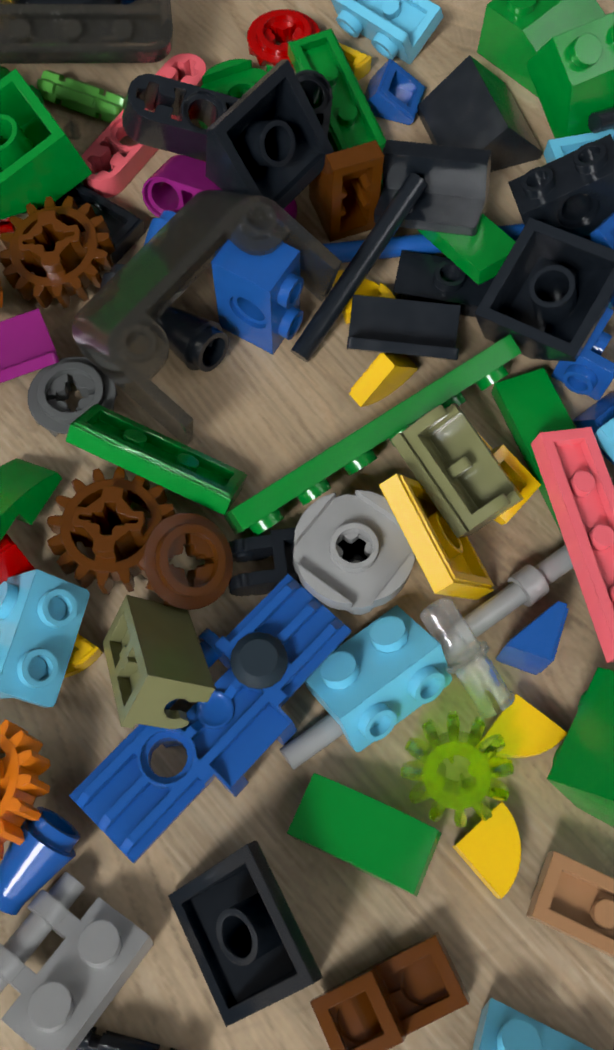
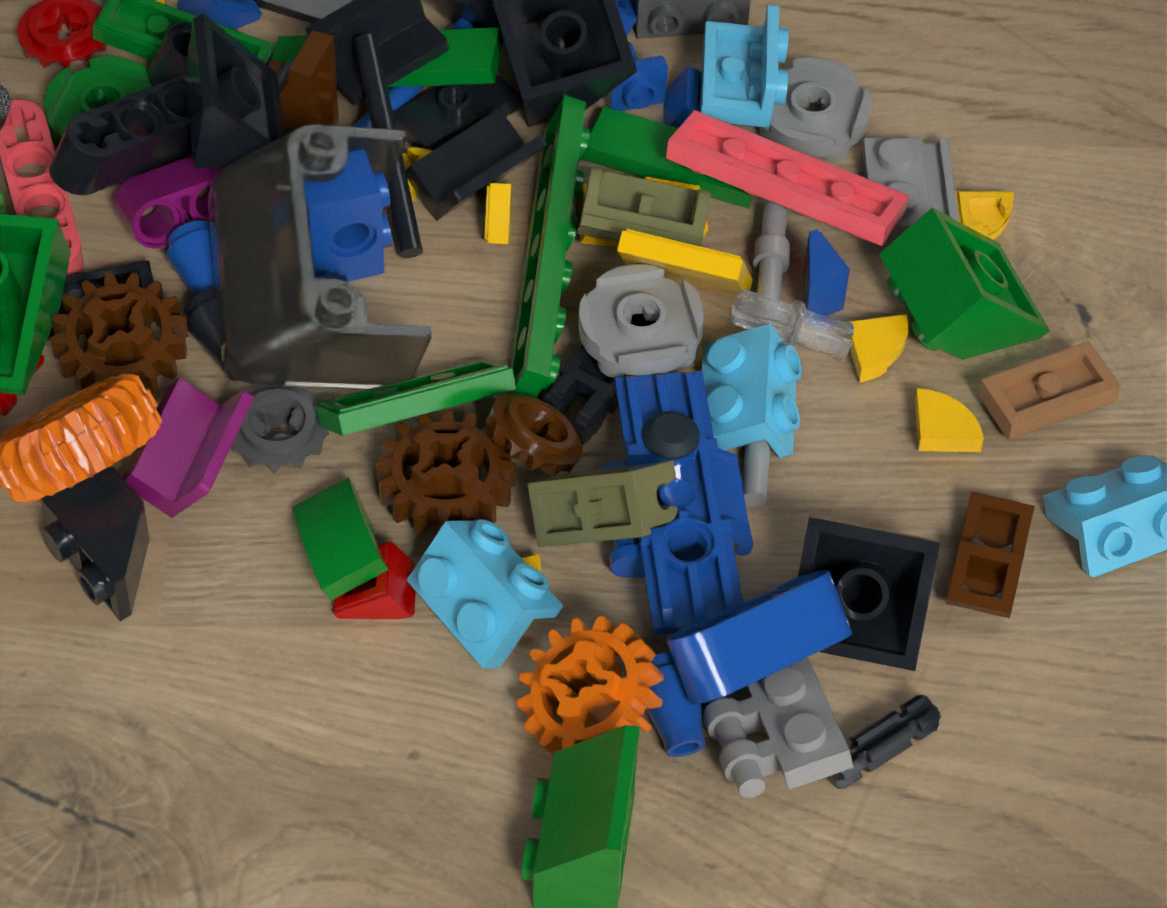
camera: 50 degrees left, 15 degrees down
(112, 893) = (759, 637): none -> blue beam
(365, 833) = (865, 479): green slope -> none
(481, 765) = (873, 370): clear neon green gear -> none

